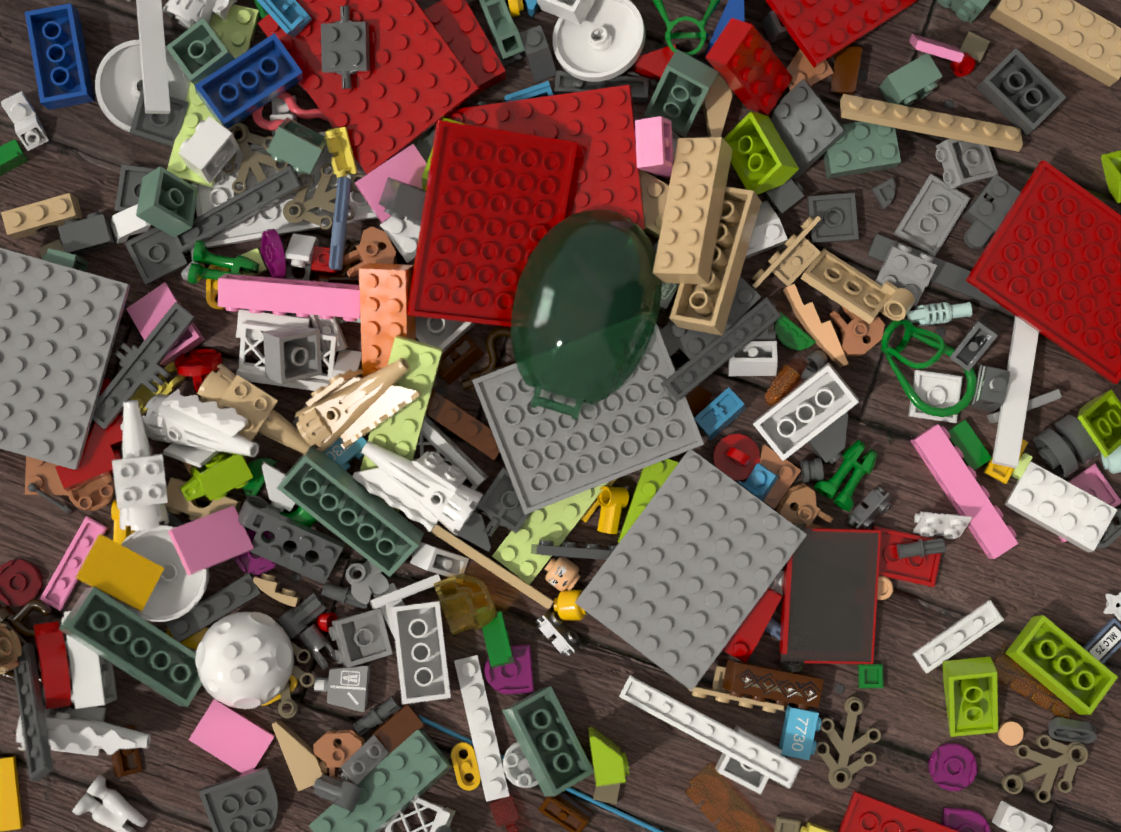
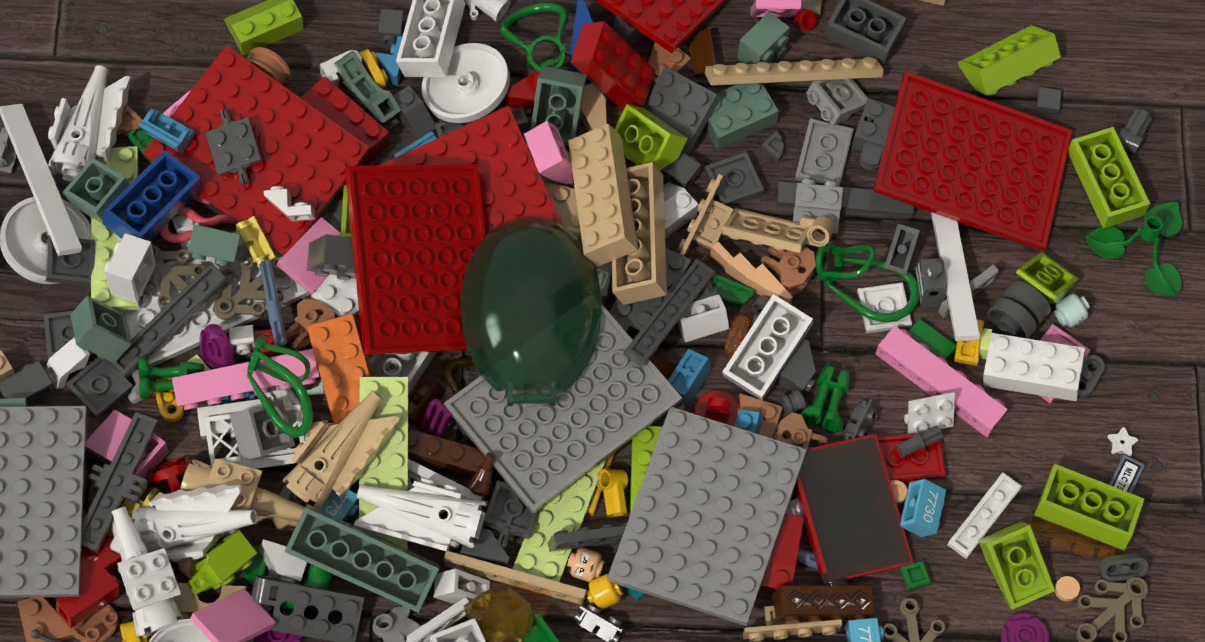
camera: 20 degrees left, 20 degrees down
(317, 325) = (283, 374): none -> green animal
(377, 122) = (282, 201): none -> white slope
(458, 391) = (434, 414): none -> magenta tile
(486, 466) = (481, 481): none -> reddish brown cone
(900, 615) = (923, 508): none -> medium azure brick
(938, 313) = (861, 233): light aqua hinge -> none

